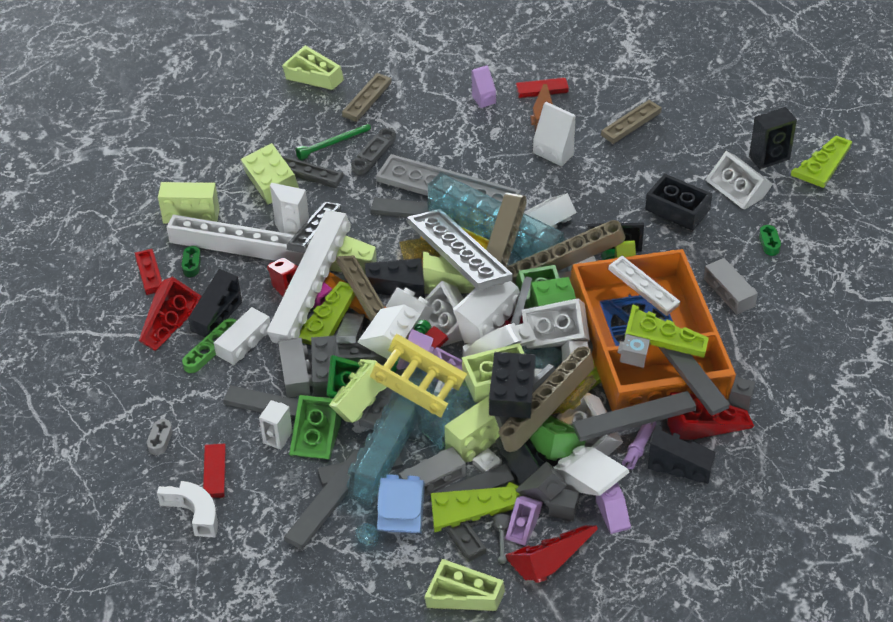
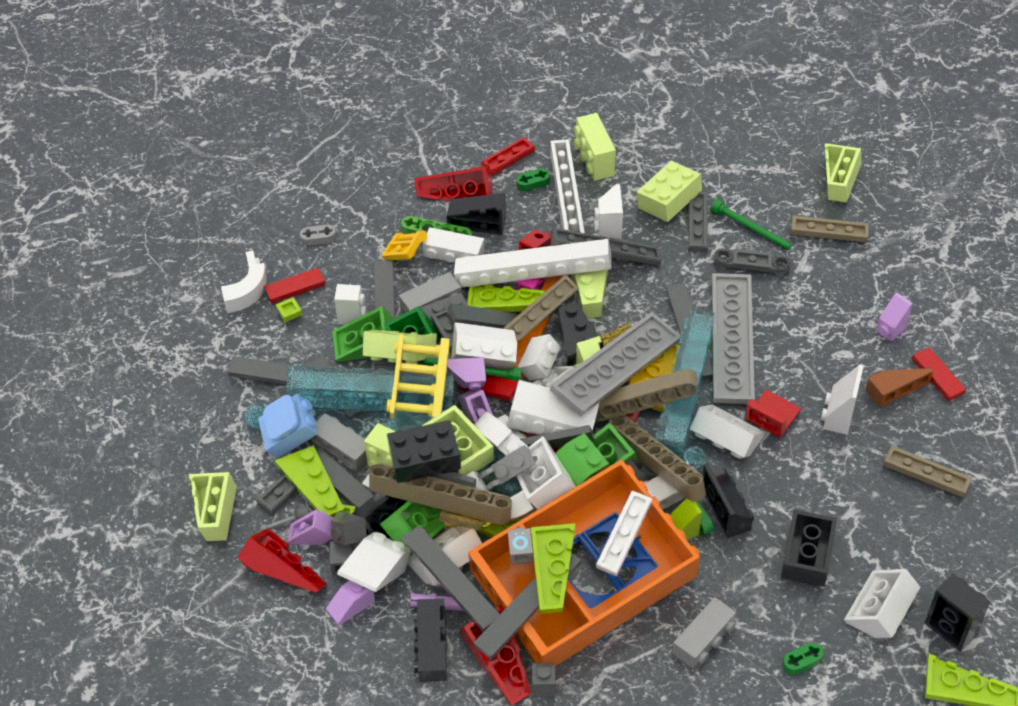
camera: 70 degrees right, 5 degrees up
(225, 372) = (404, 245): none -> yellow plate
(246, 480) = (289, 309): none -> lime plate
(538, 185) = (771, 413): none -> red bracket
(543, 340) = (509, 467): none -> light grey hinge

